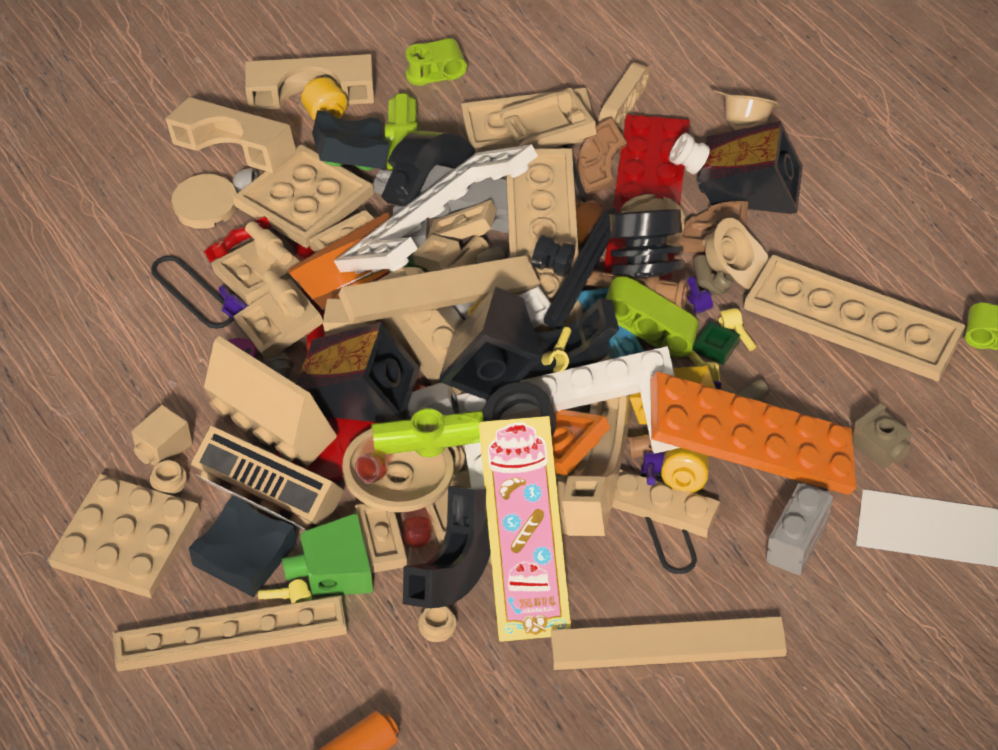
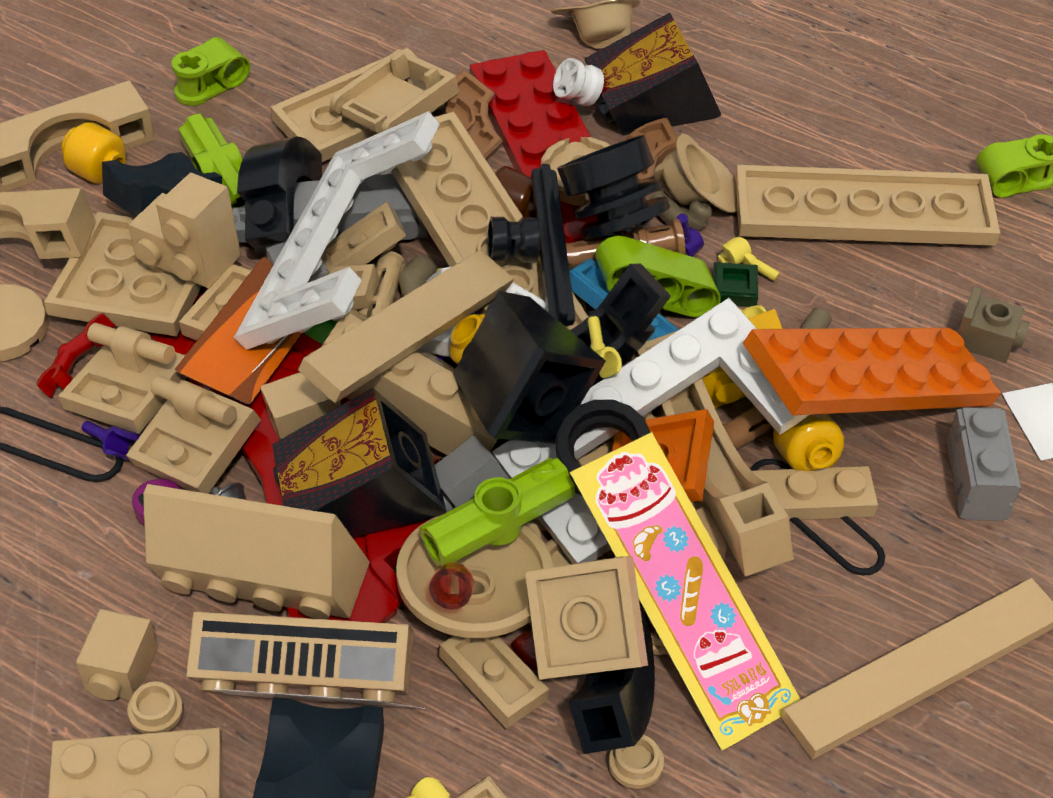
camera: 30 degrees left, 0 degrees up
(244, 178) = (42, 278): light grey hinge -> none
(332, 559) = (453, 730): bright green torso -> none
(341, 179) = (188, 231): none -> tan brick
(441, 518) = (586, 618): none -> tan plate
(625, 94) = (456, 38): tan beam -> none
(652, 465) = (767, 453): dark purple hand -> none

